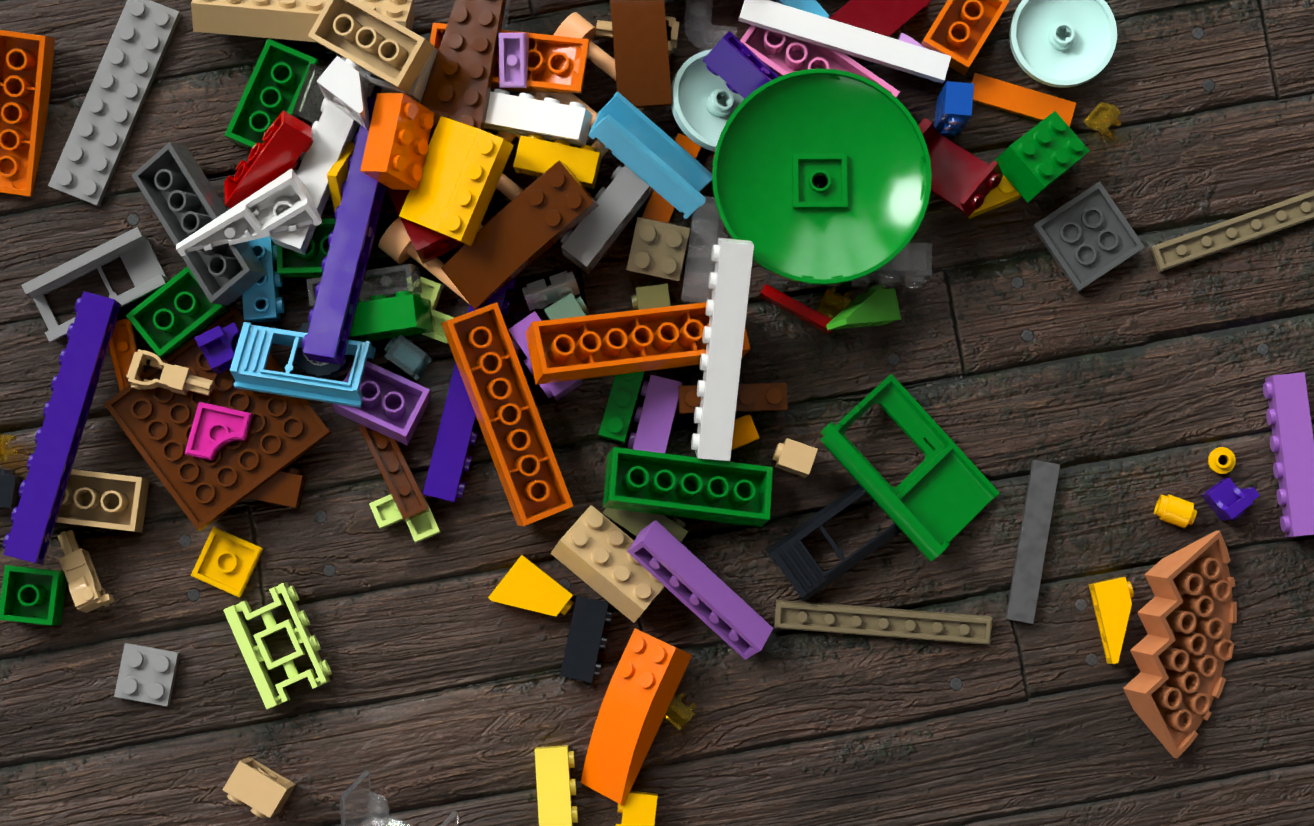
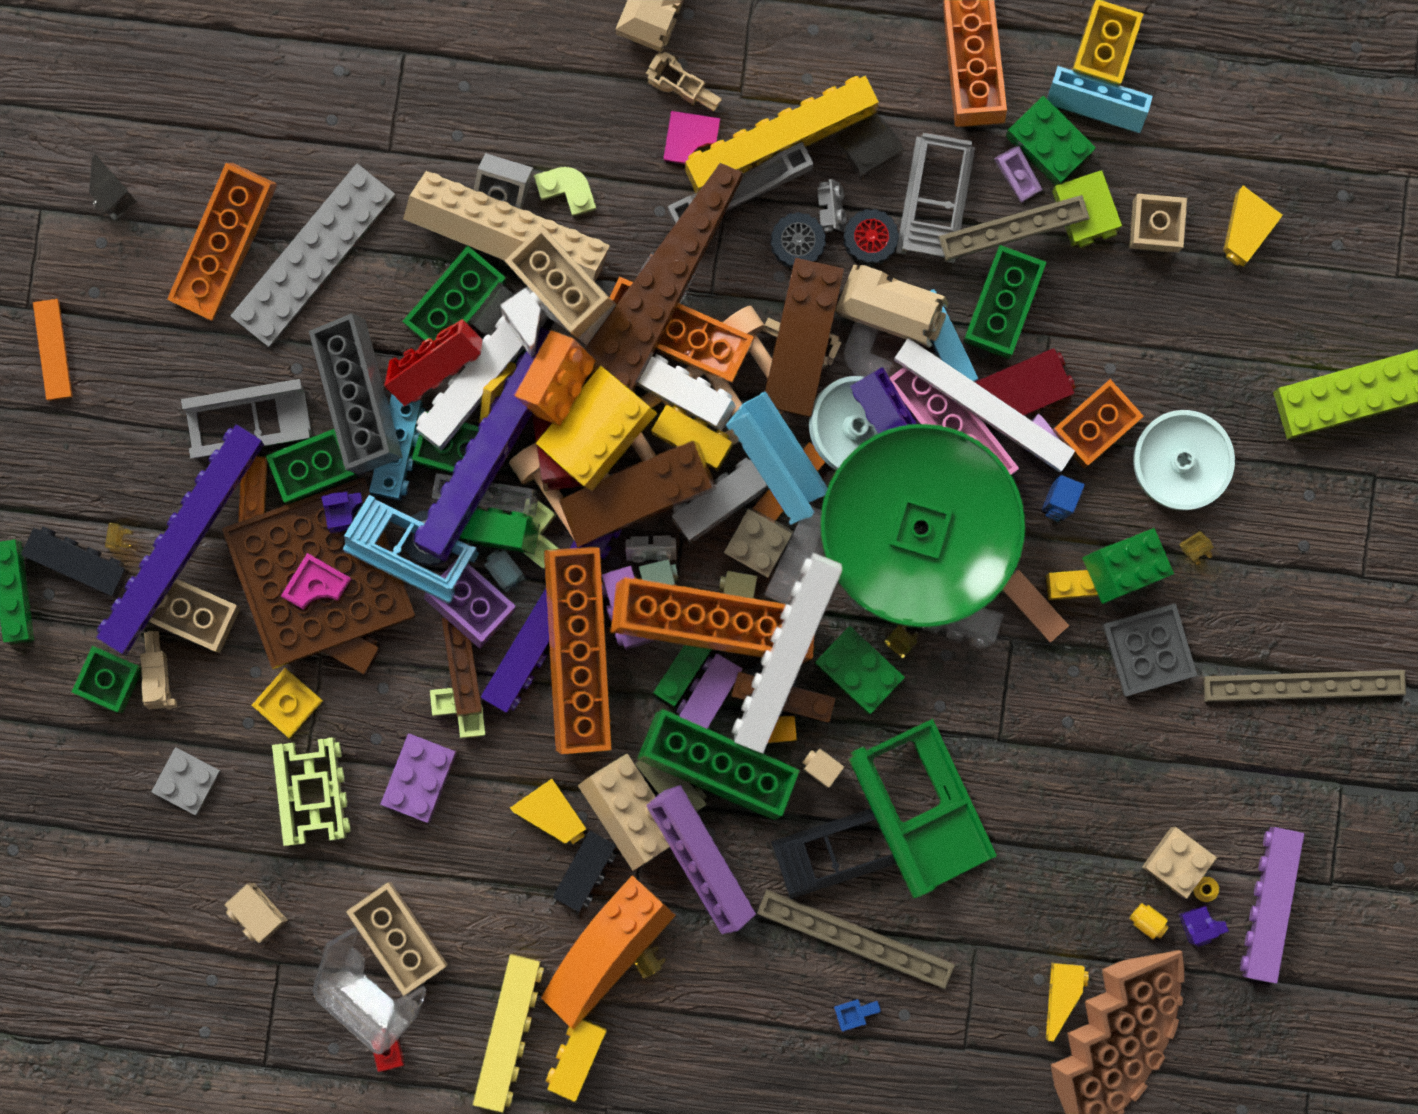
camera: 15 degrees right, 0 degrees up
(173, 377) = (291, 525): tan piece -> none
(272, 209) = (426, 404): white wedge -> none
(385, 596) = (418, 778): none -> medium lavender brick
(412, 768) = (397, 938): none -> tan brick
(513, 60) = (681, 334): lavender slope -> none
(795, 307) = (865, 632): red tile -> none
(801, 347) = (859, 670): none -> green brick
(868, 310) = (929, 655): bright green slope -> none
(904, 700) = (852, 1013): none -> blue plate
(958, 174) = (1046, 555): dark red panel -> none
(959, 229) = (1034, 606): none -> nougat tile
(1019, 99) = (1127, 506): orange tile -> none
(1032, 541) = (1012, 909): flat silver tile -> none
(1186, 441) = (1179, 862): none -> tan brick

